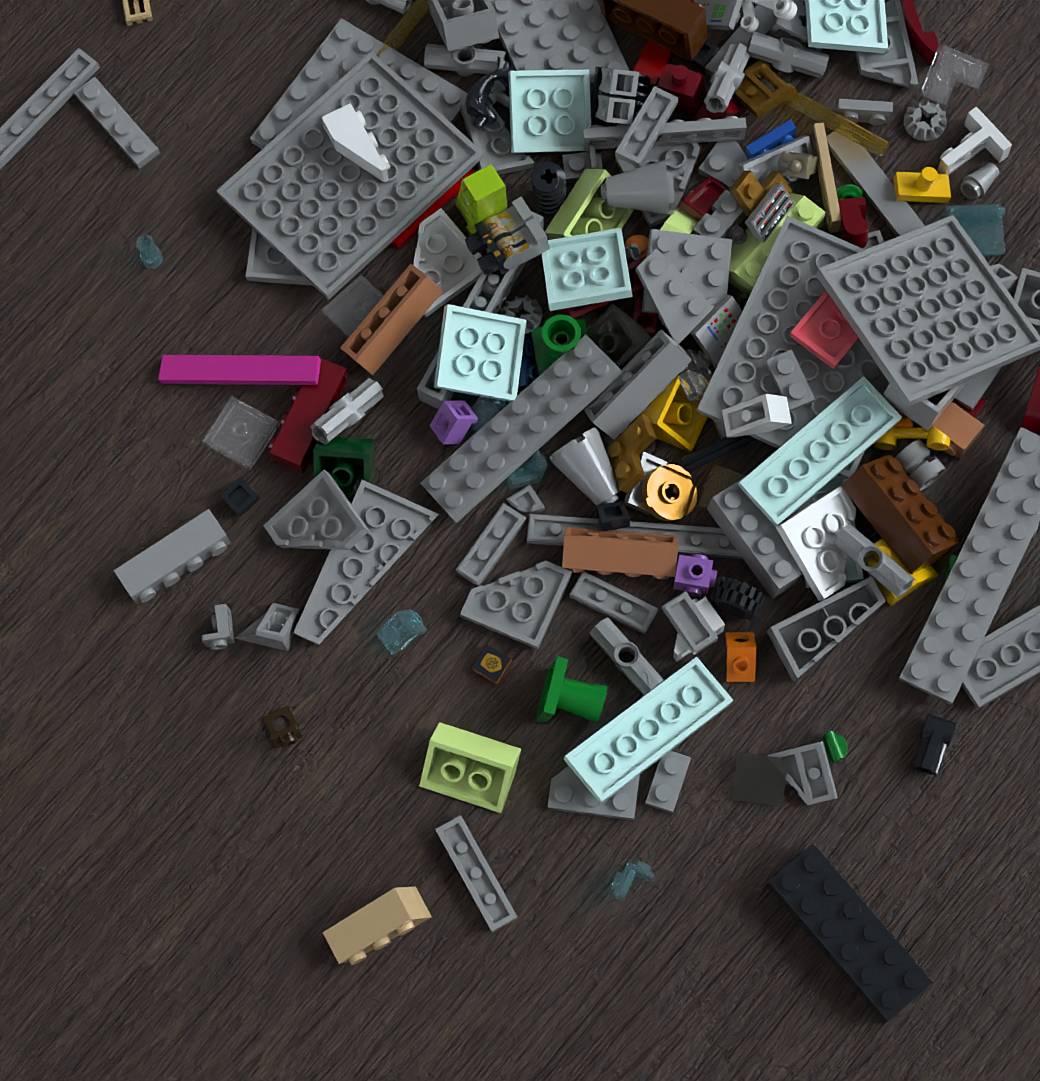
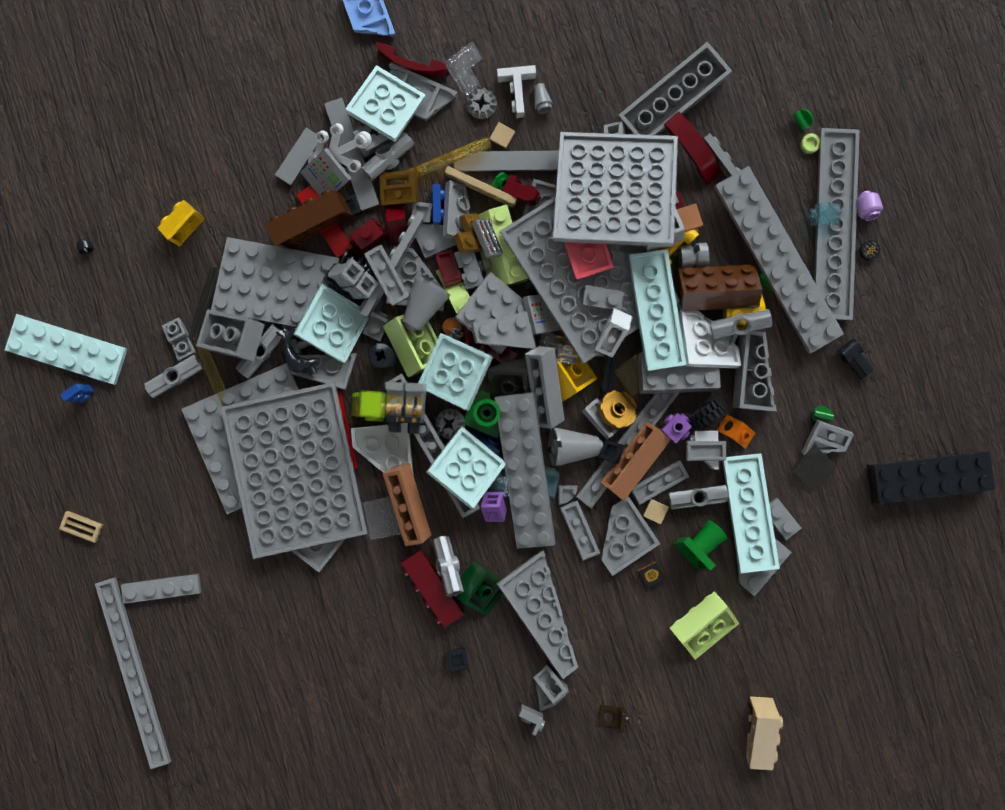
camera: 60 degrees left, 15 degrees up
(149, 252) = (264, 621): clear light blue pin -> none
(172, 557) = (470, 721): light grey brick -> none
(240, 369) = (378, 612): dark pink tile -> none
(241, 432) = (416, 633): clear plate -> none
(317, 518) = (504, 624): light grey plate -> none
(351, 140) = (271, 458): white slope -> none
(401, 630) = (599, 614): clear light blue bracket -> none
(476, 873) = (767, 659): light grey plate -> none
(574, 620) = (655, 511): none -> tan tile
(623, 881) = (824, 581): clear light blue bracket -> none
(625, 453) = (578, 420): pearl gold plate -> none
(726, 78) = (382, 204): light grey piece -> none
(754, 131) = (423, 208): none -> light grey plate
(797, 164) = (465, 200): dark tan piece -> none
(866, 111) = (459, 130): light grey plate -> none
(904, 162) = (502, 135): none -> tan tile
(922, 186) = (523, 135): yellow tile -> none
(982, 225) = (569, 118): clear light blue hinge -> none

